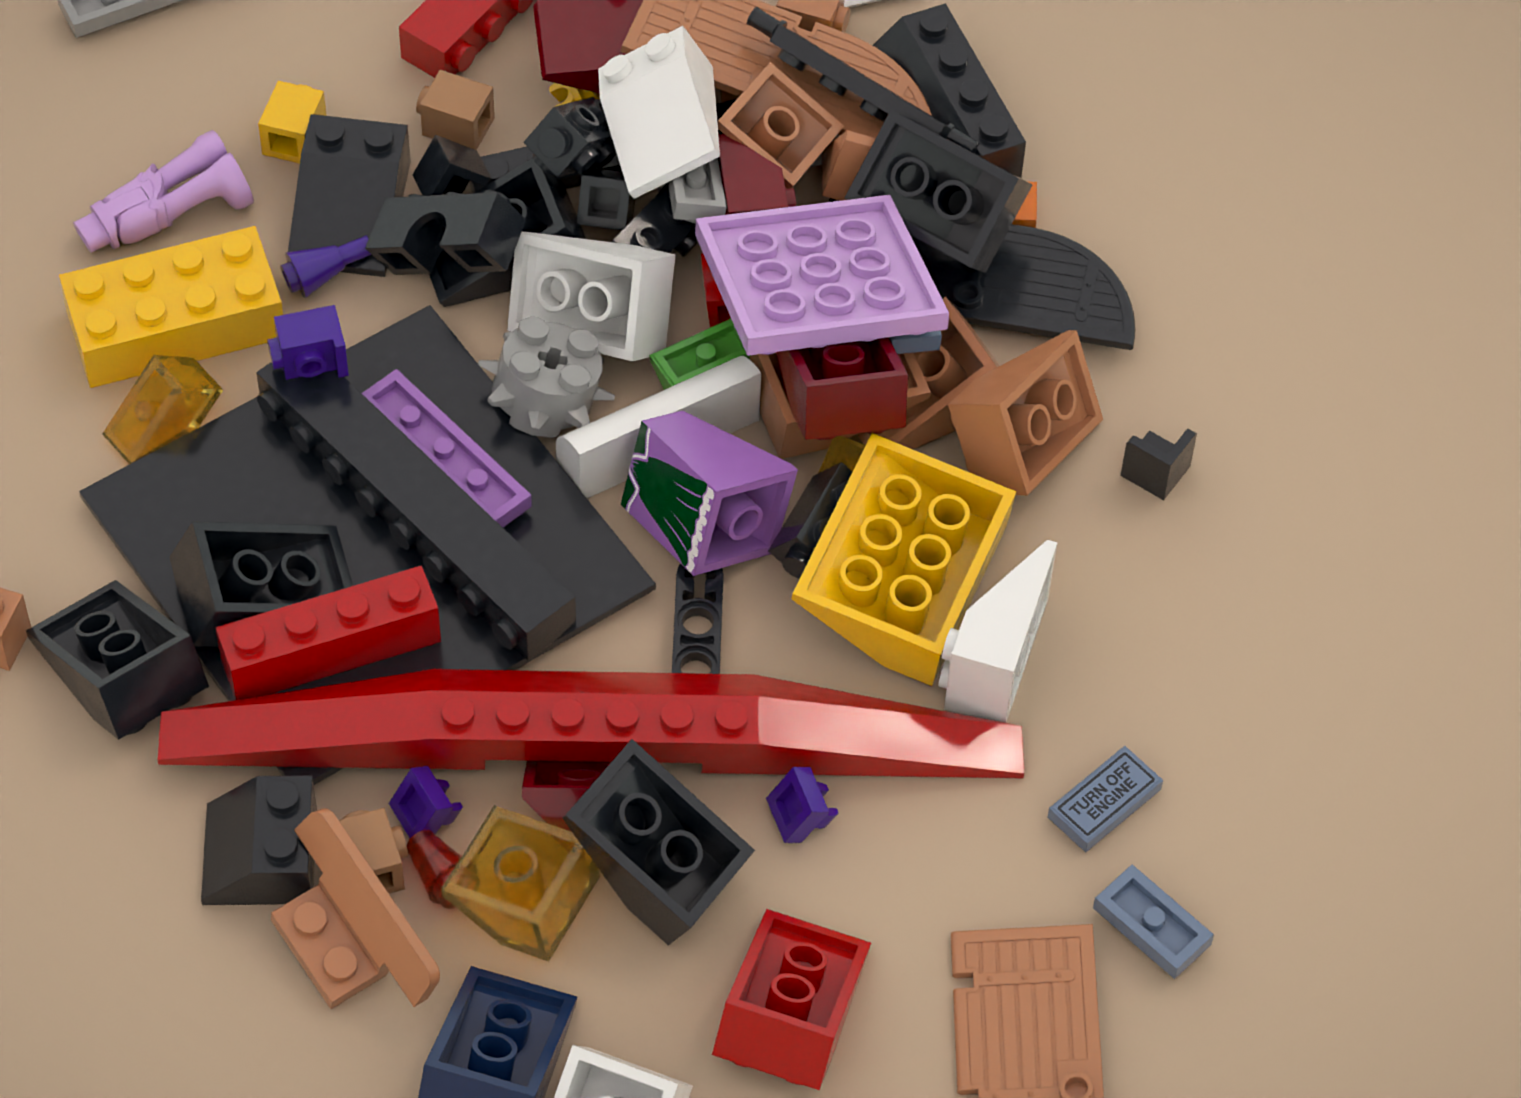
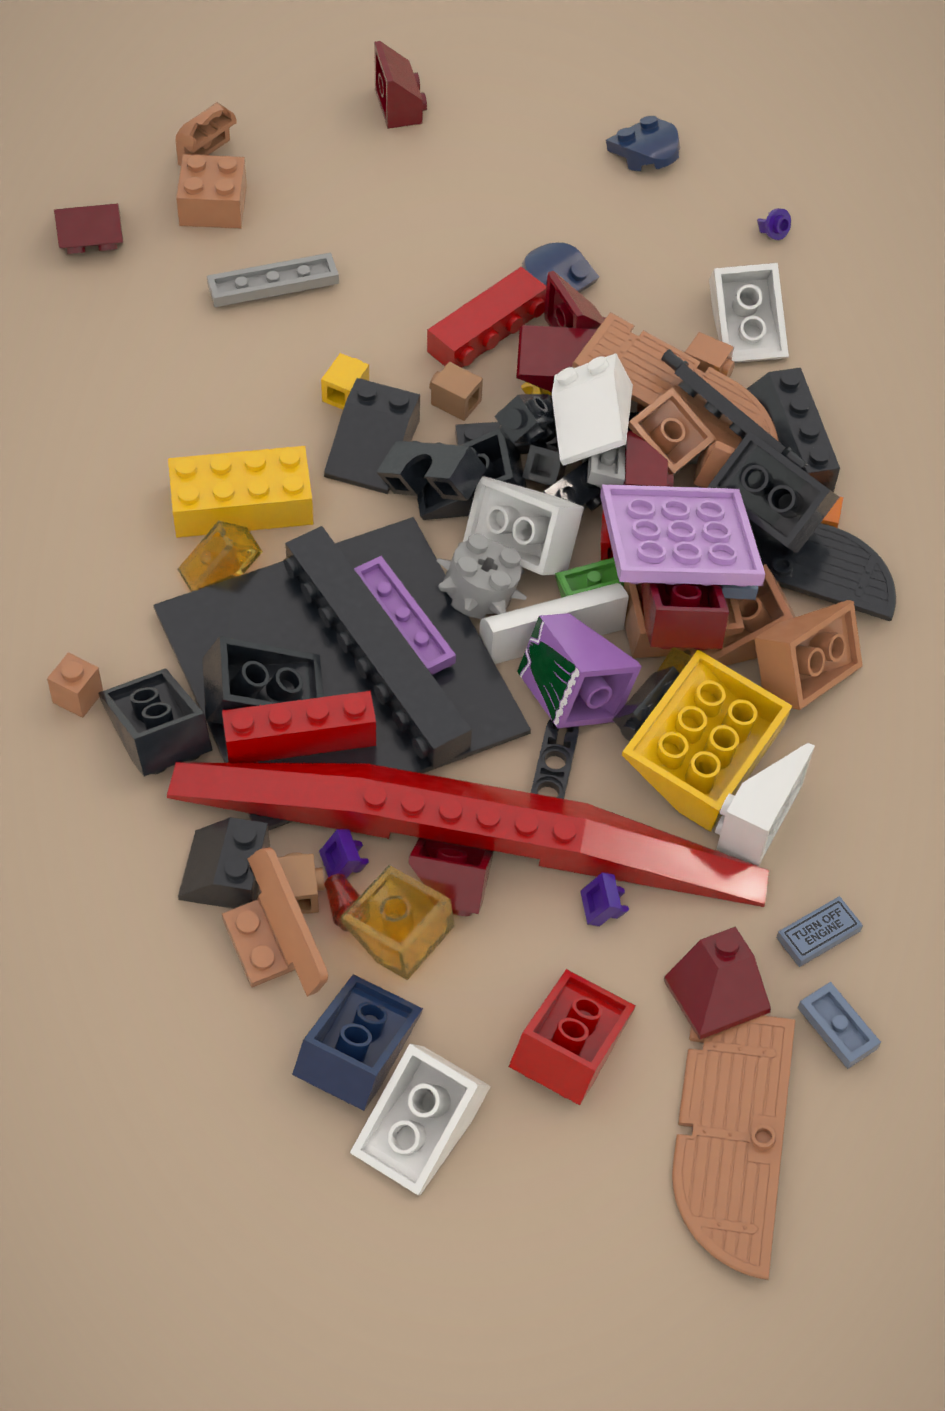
camera: 10 degrees right, 0 degrees up
(145, 205) = (237, 421): lavender piece -> none
(308, 343) = (322, 528): dark purple brick -> none
(313, 267) = (342, 479): dark purple cone -> none
(449, 168) = (443, 427): black panel -> none
(655, 842) = (495, 909): black slope -> none
(980, 893) = (718, 984): none -> dark red slope
(1156, 462) = (896, 702): black panel -> none

